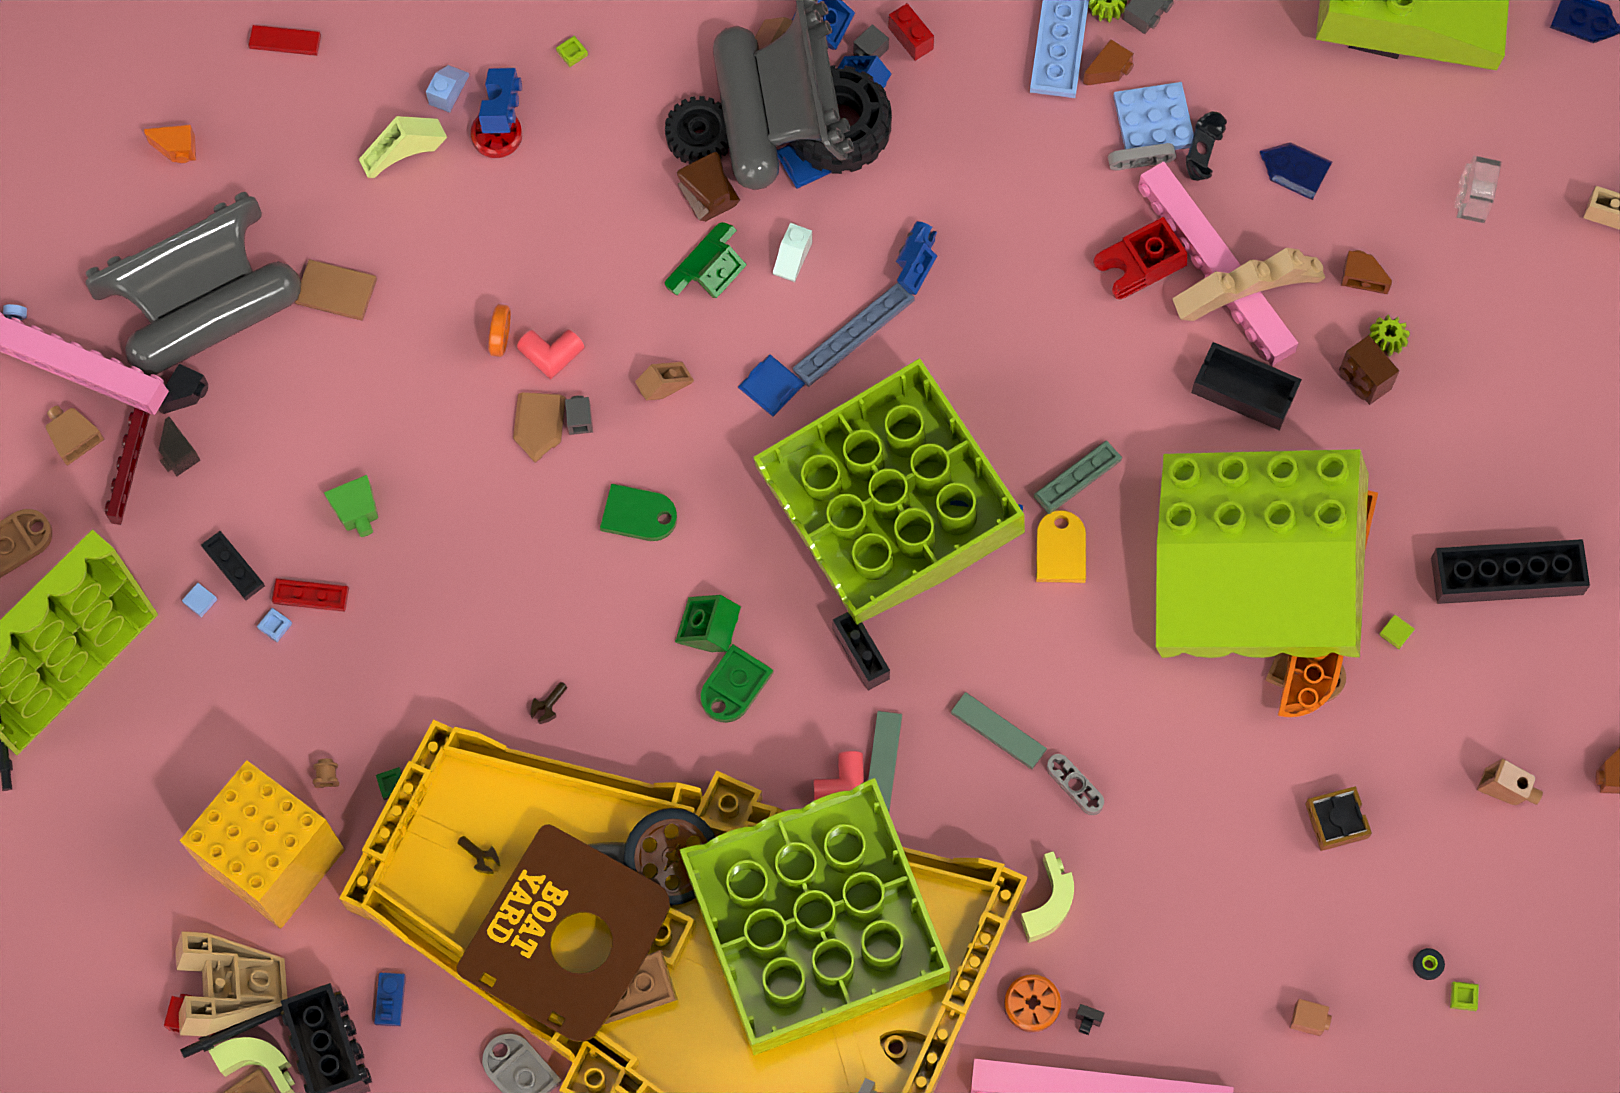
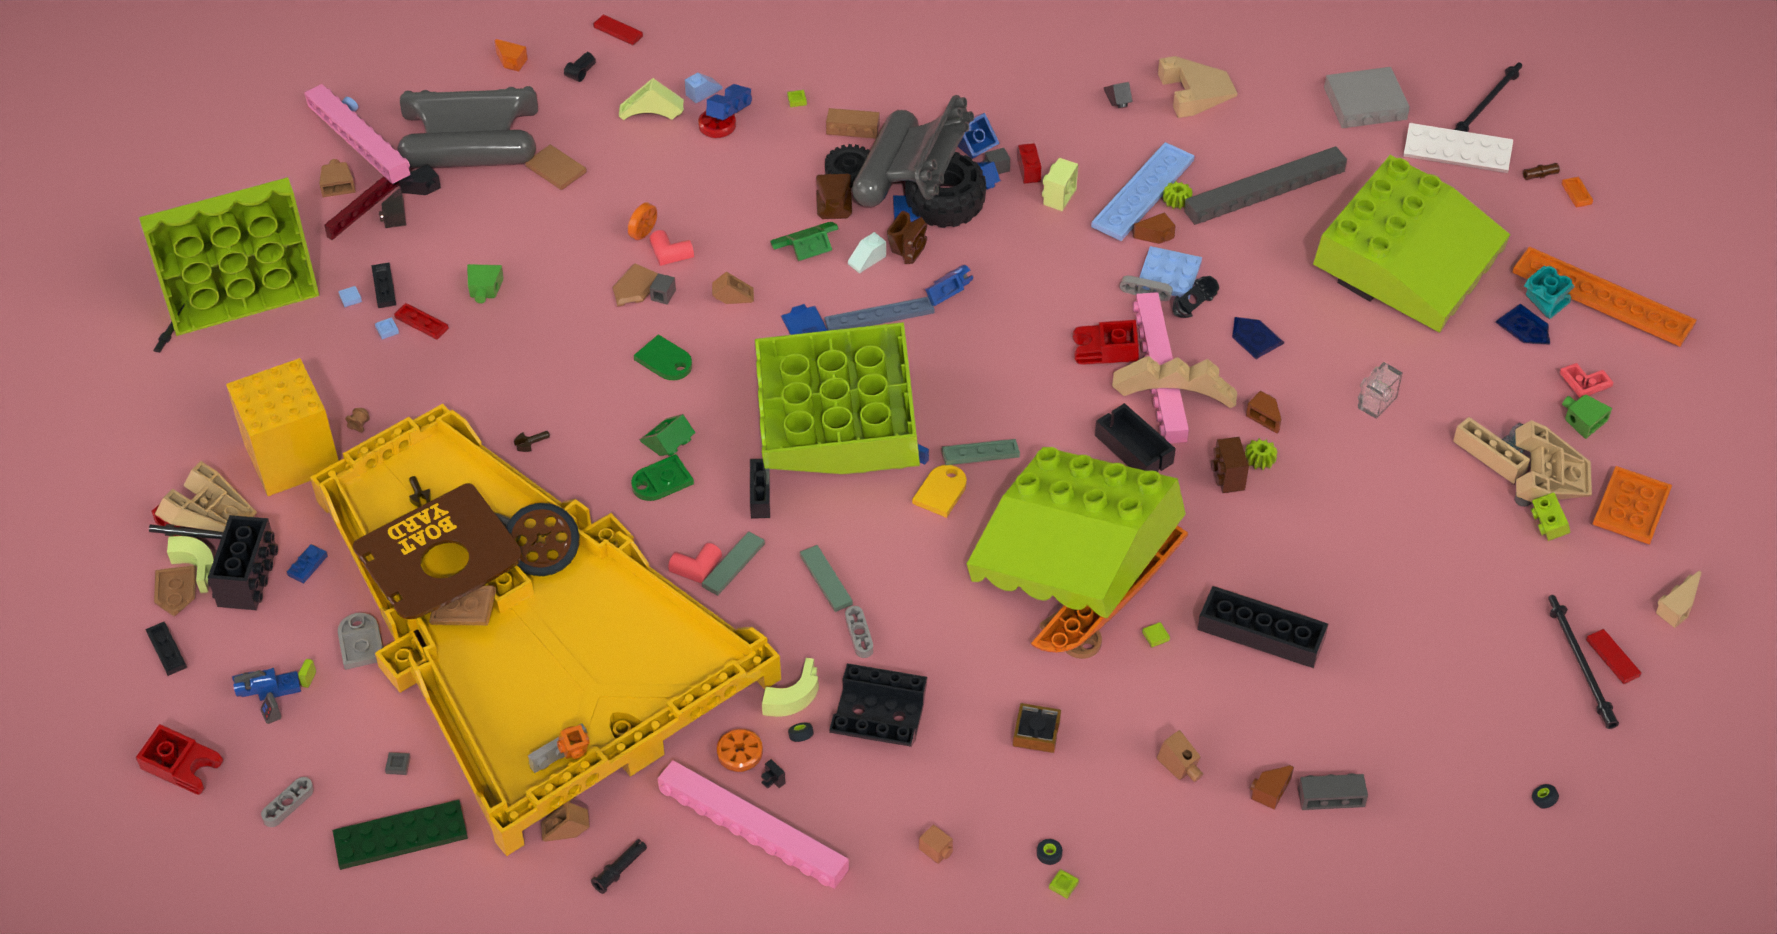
camera: 25 degrees right, 20 degrees down
(274, 128) = (578, 69): none -> black piece
(665, 63) = (852, 123): none -> medium nougat brick
(815, 916) = (608, 608): lime piece -> none
(832, 211) = (907, 237): none -> reddish brown piece
(967, 50) = (1060, 184): none -> yellowish green brick
(1089, 951) = (800, 732): none -> black wheel
(1150, 860) = (882, 697): none -> black slope

